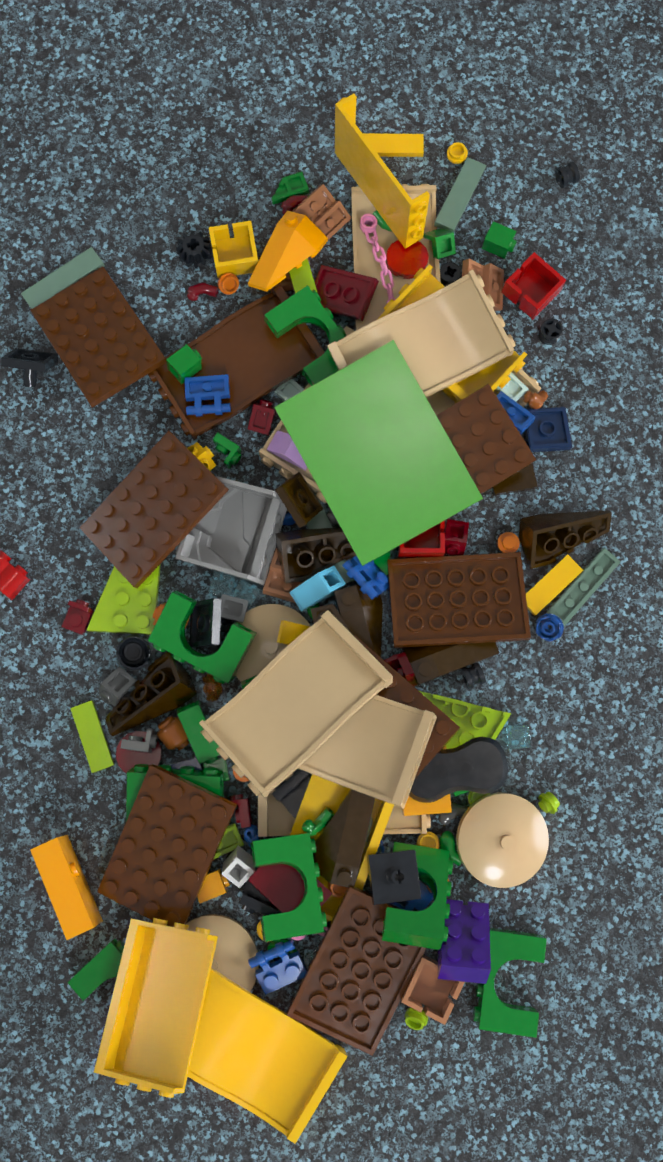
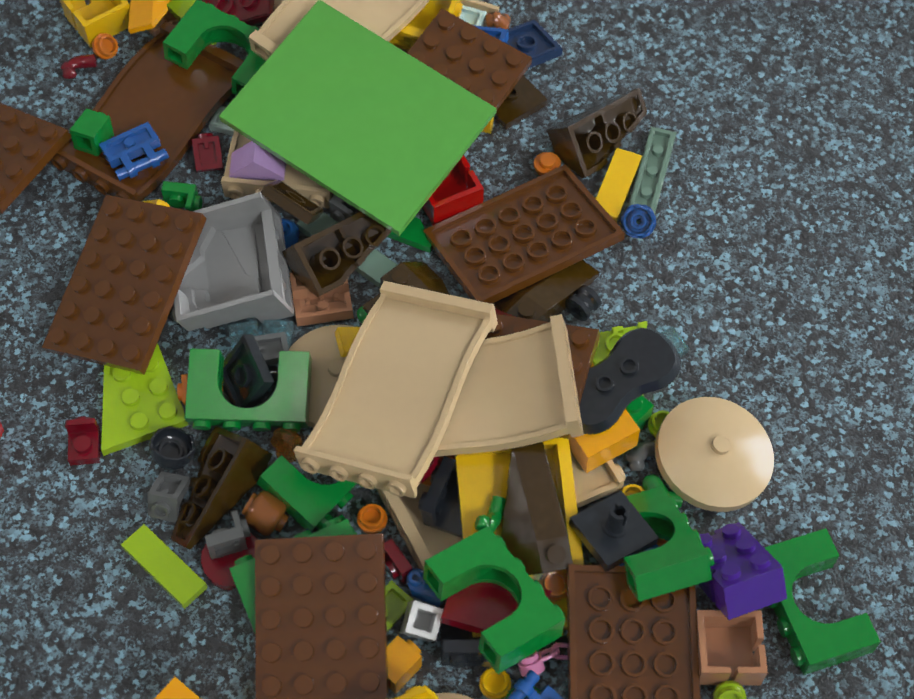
camera: 25 degrees left, 20 degrees down
(191, 256) = (50, 29): black gear -> none
(317, 588) = (359, 284): medium azure slope -> none
(369, 577) = (416, 255): blue plate -> none
(456, 537) = (490, 178): dark red bracket -> none
(548, 802) = (742, 393): lime plate -> none

